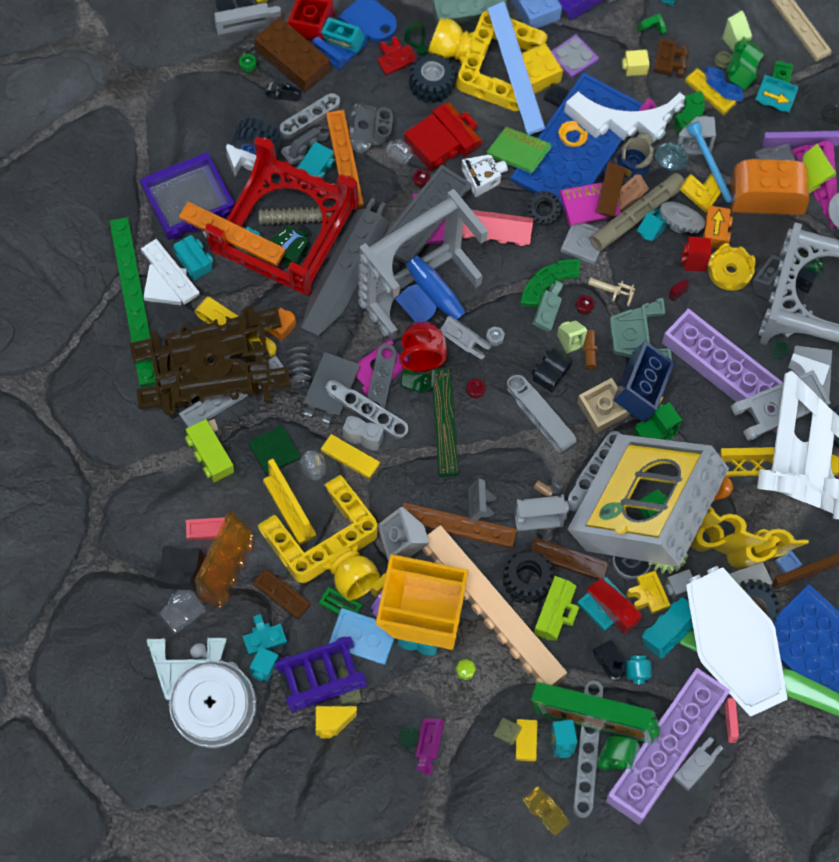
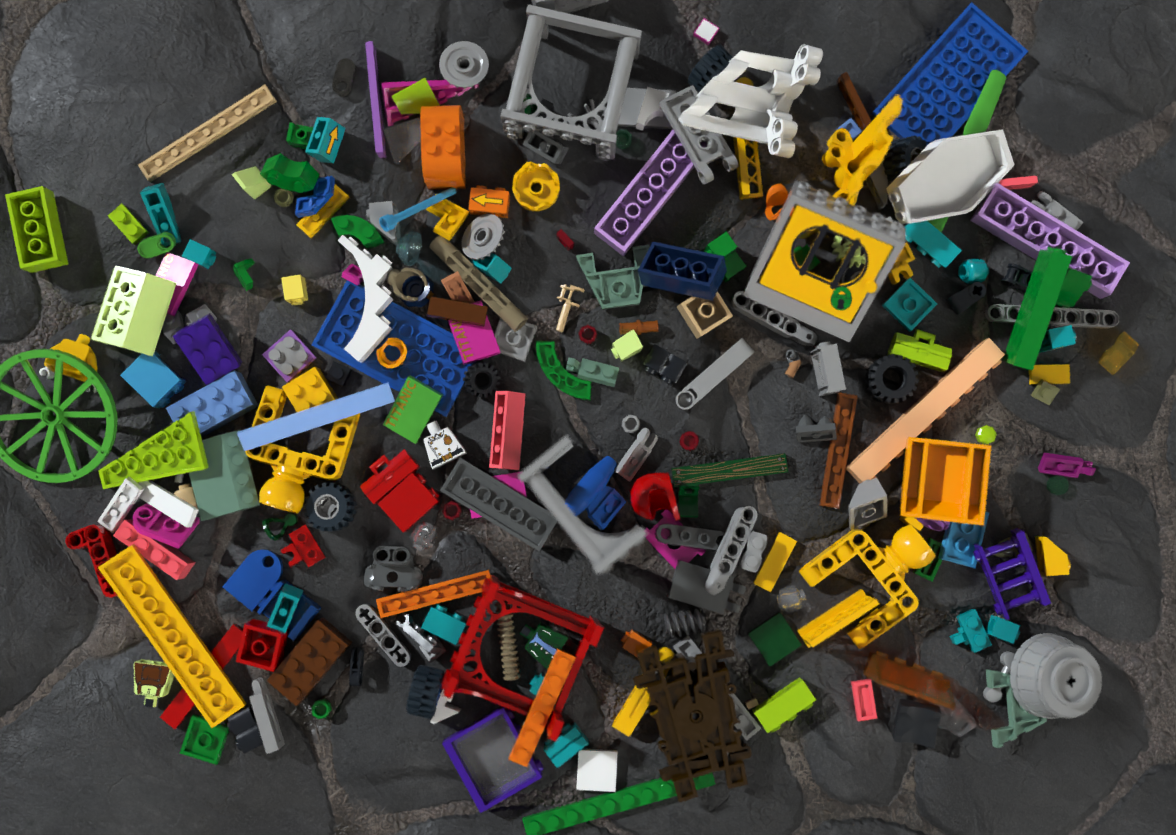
camera: 90 degrees left, 20 degrees up
(170, 271) = (585, 767): white tile -> none
(281, 594) = (925, 618): reddish brown tile -> none
(341, 273) = (565, 583): dark grey hinge -> none
(571, 559) = (864, 343): reddish brown tile -> none
(615, 605) = (917, 294): red slope -> none
(665, 58) = (285, 258): reddish brown plate -> none
(696, 254) = (526, 221): red brick -> none

